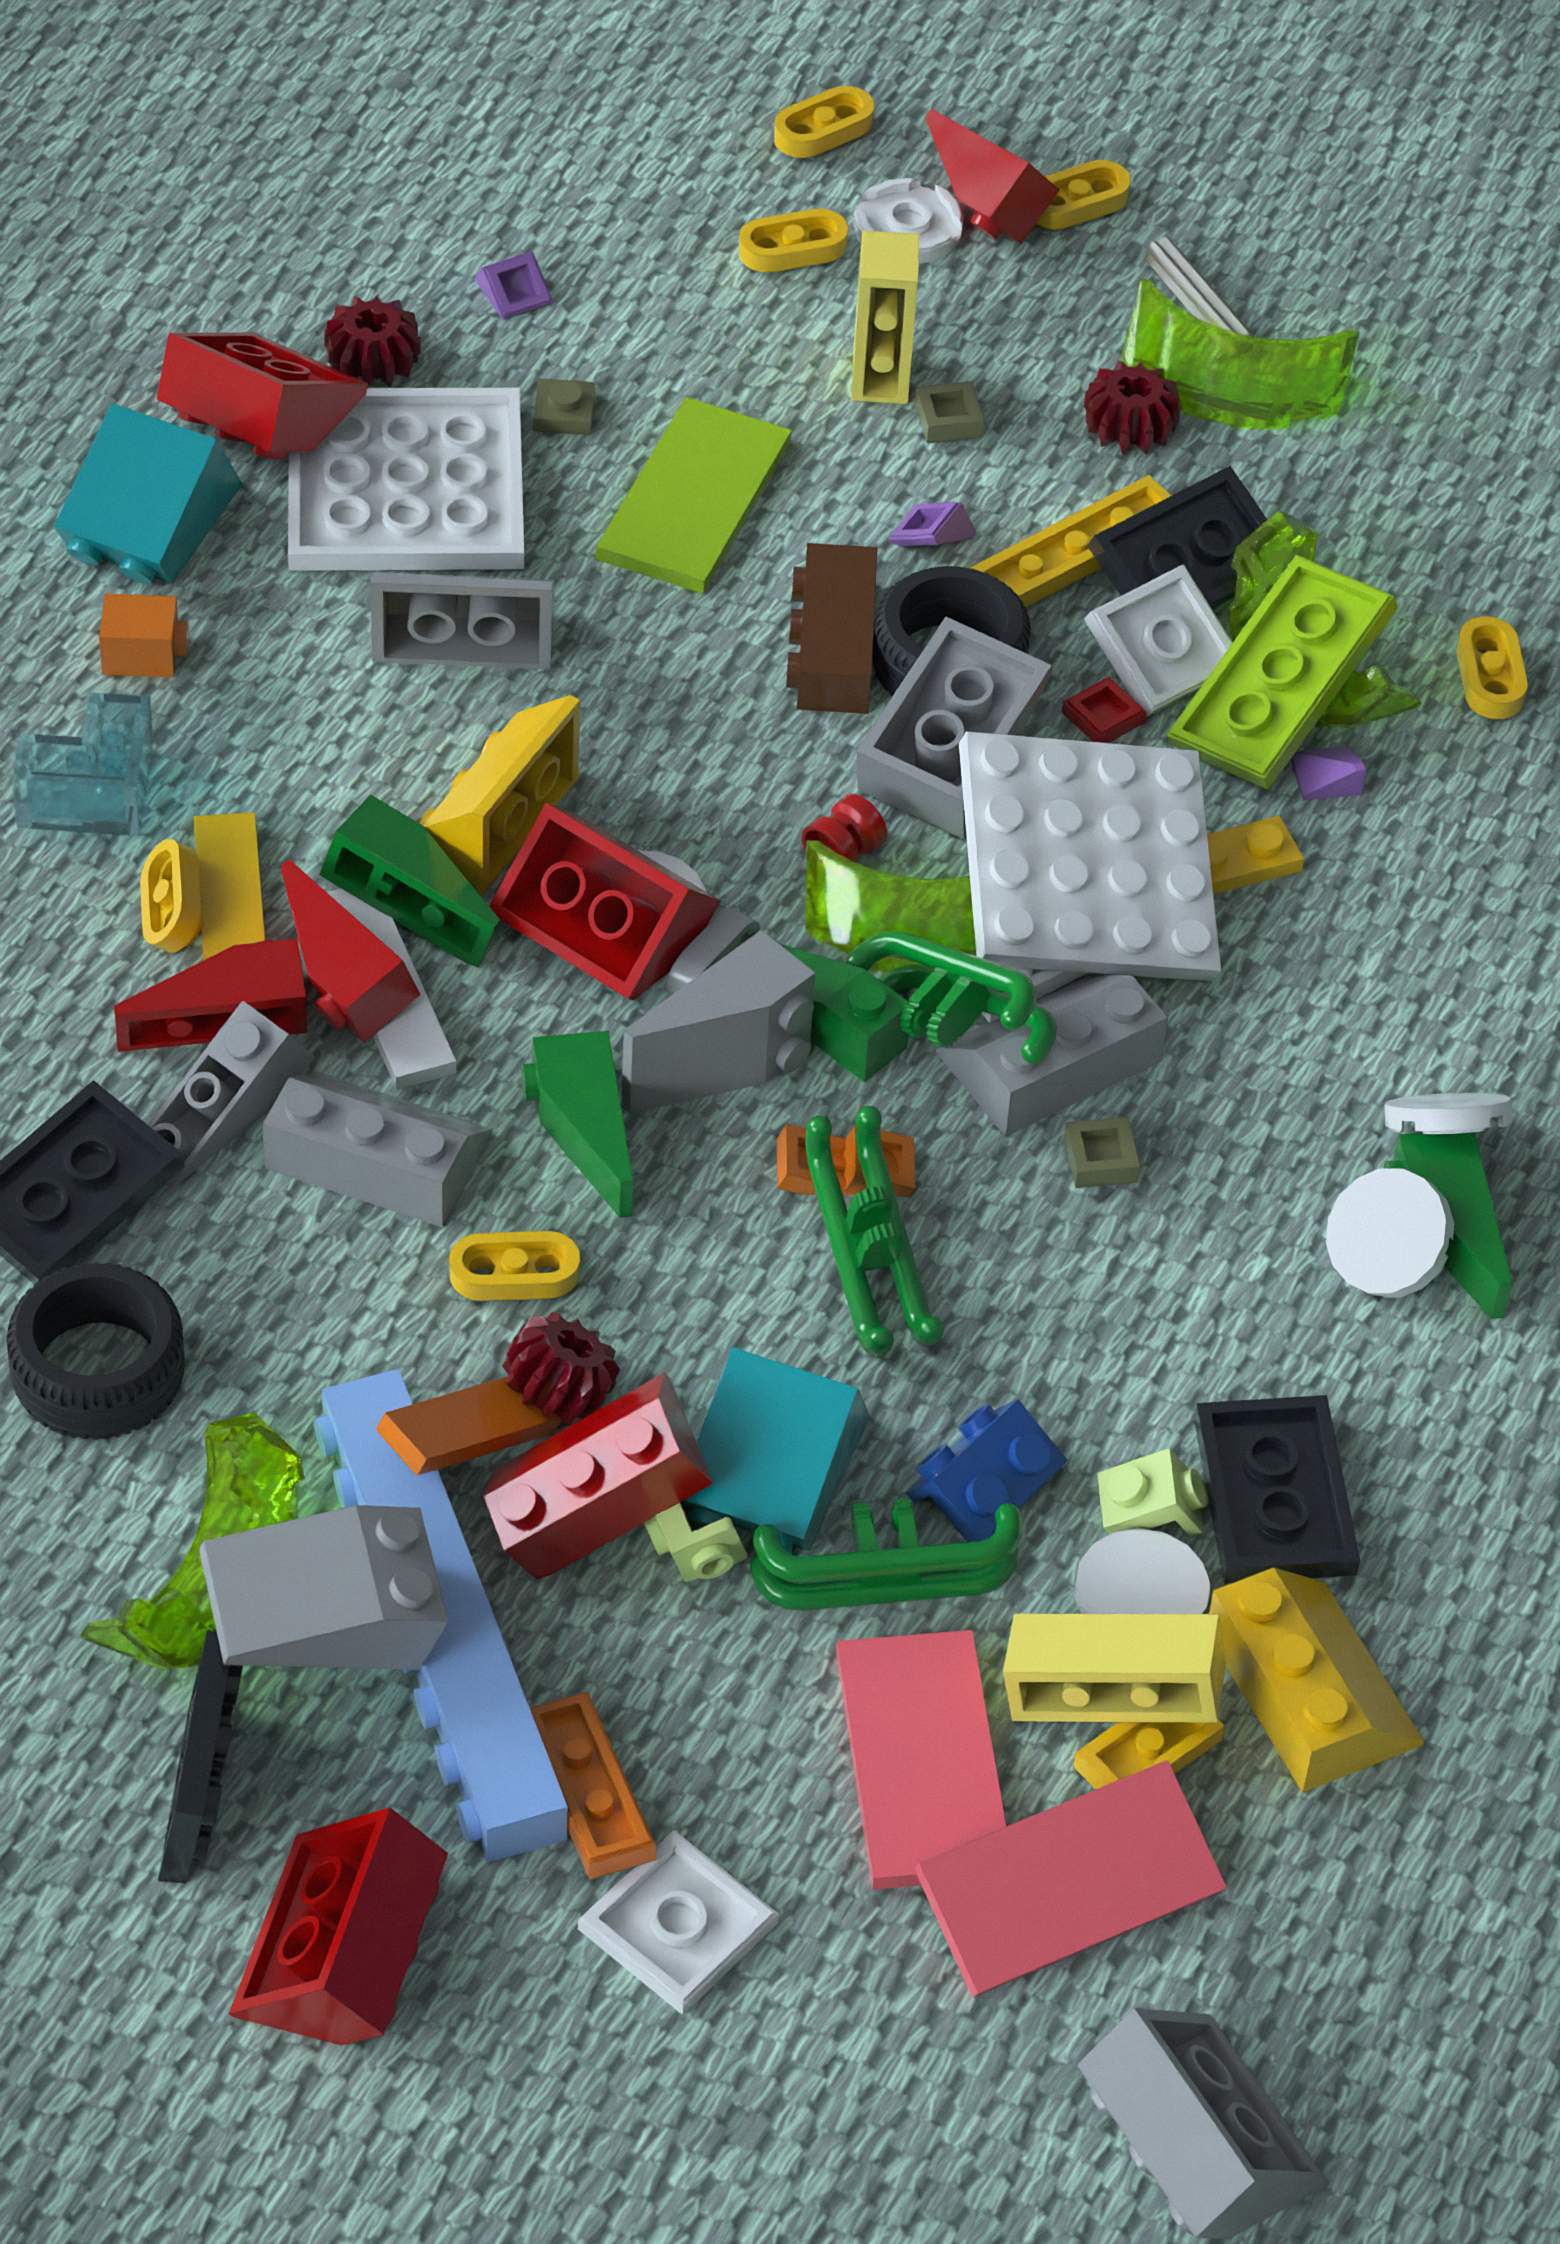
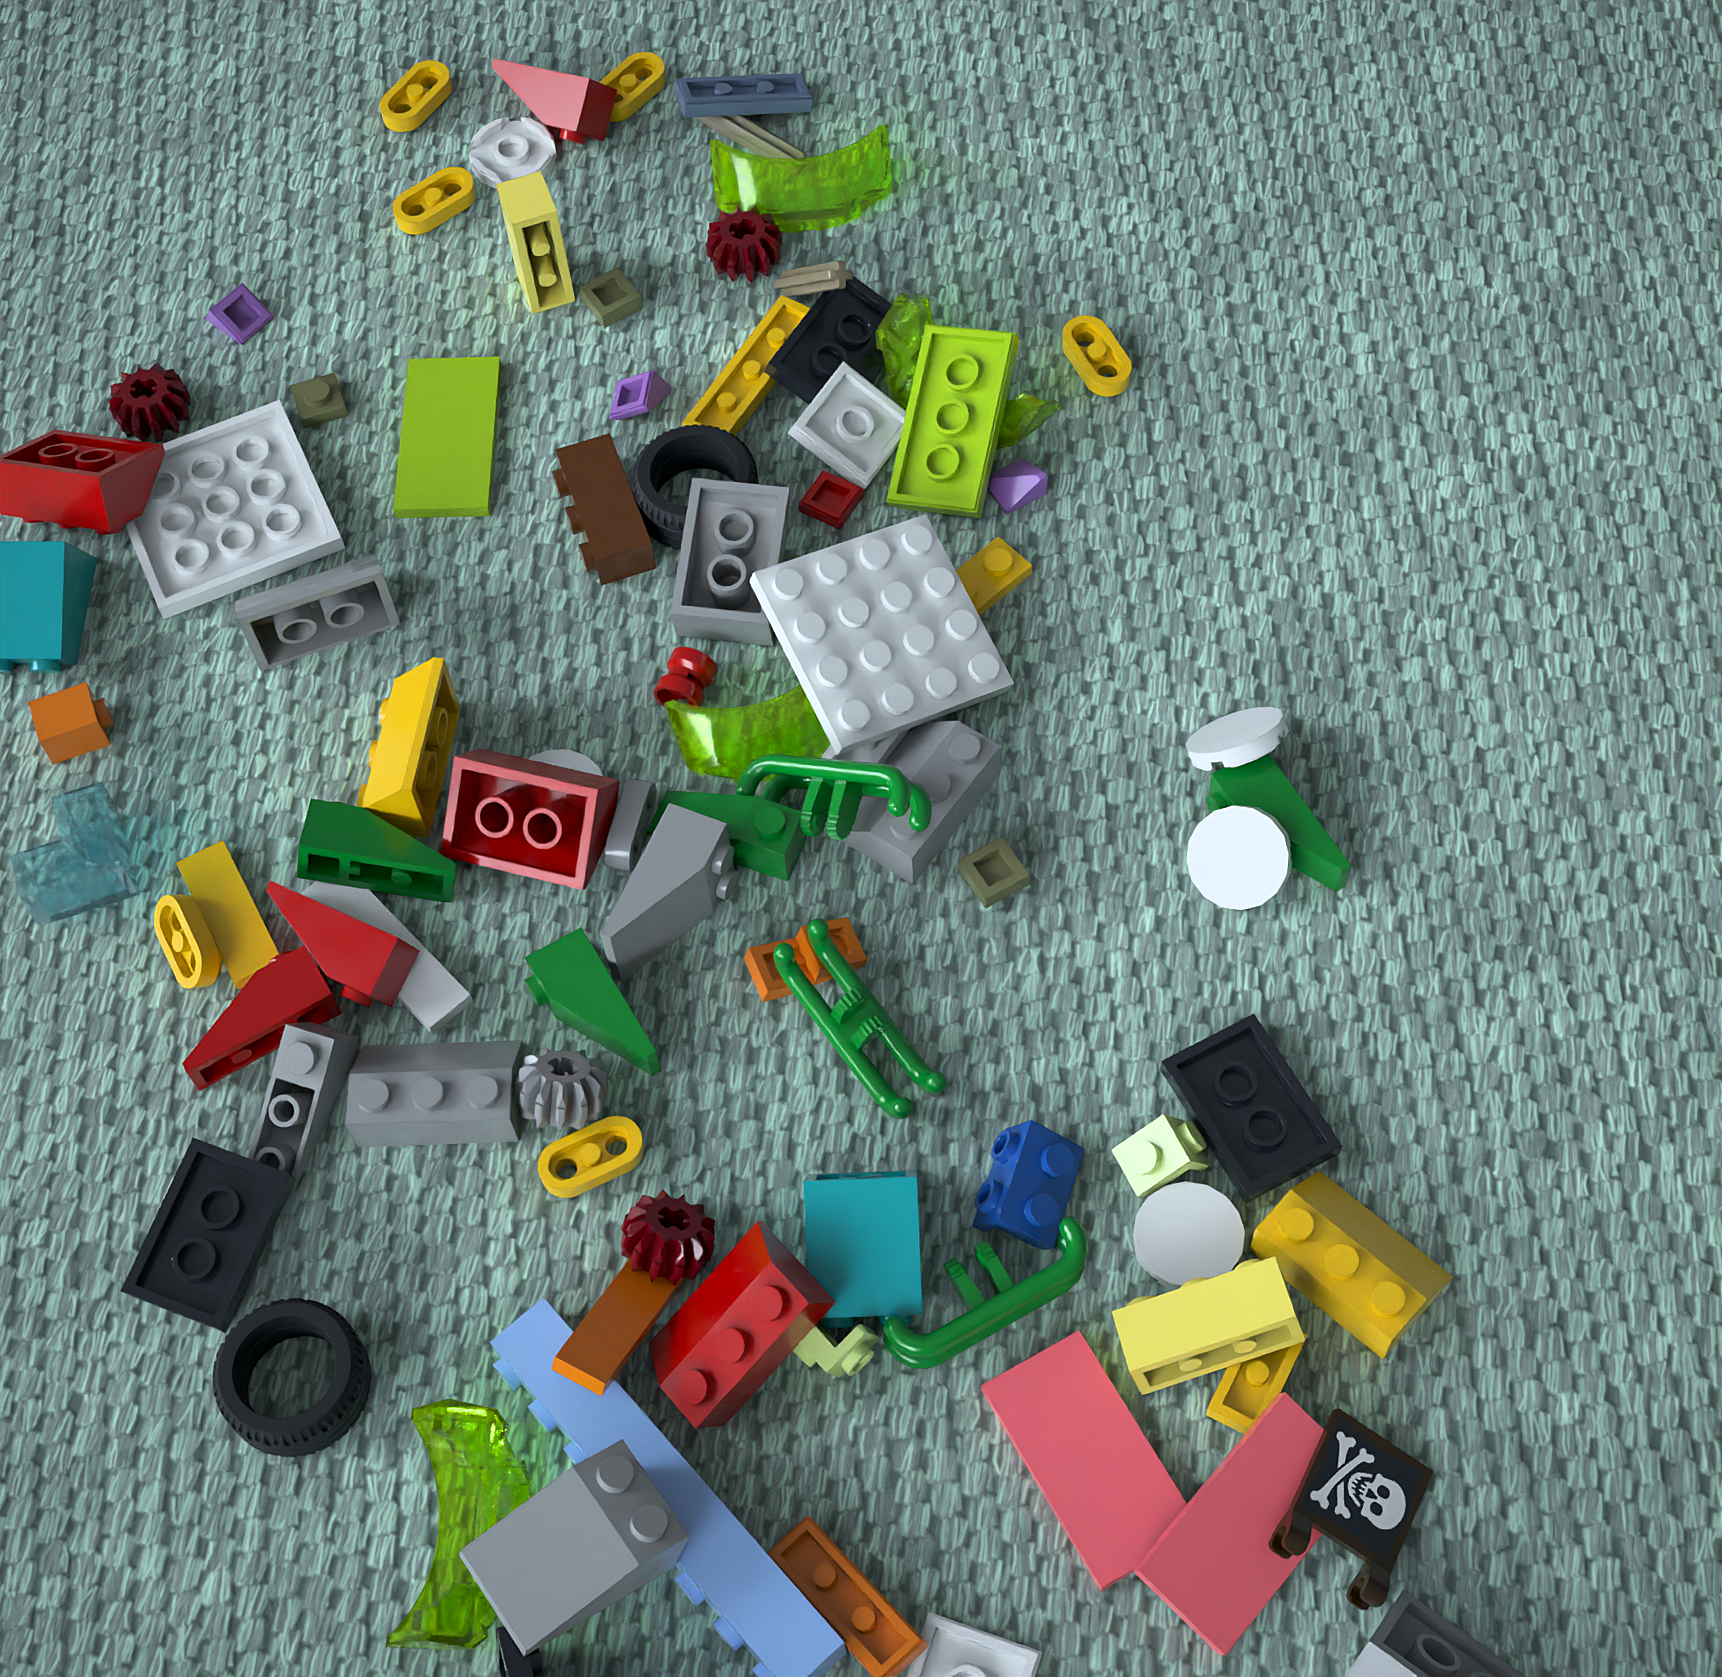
camera: 15 degrees left, 10 degrees up
(512, 1182) = (561, 1088): none -> light grey gear
(1190, 466) = (814, 279): none -> dark tan axle
(1203, 1900) = (1361, 1498): none -> flag
(1208, 247) = (743, 95): none -> sand blue tile

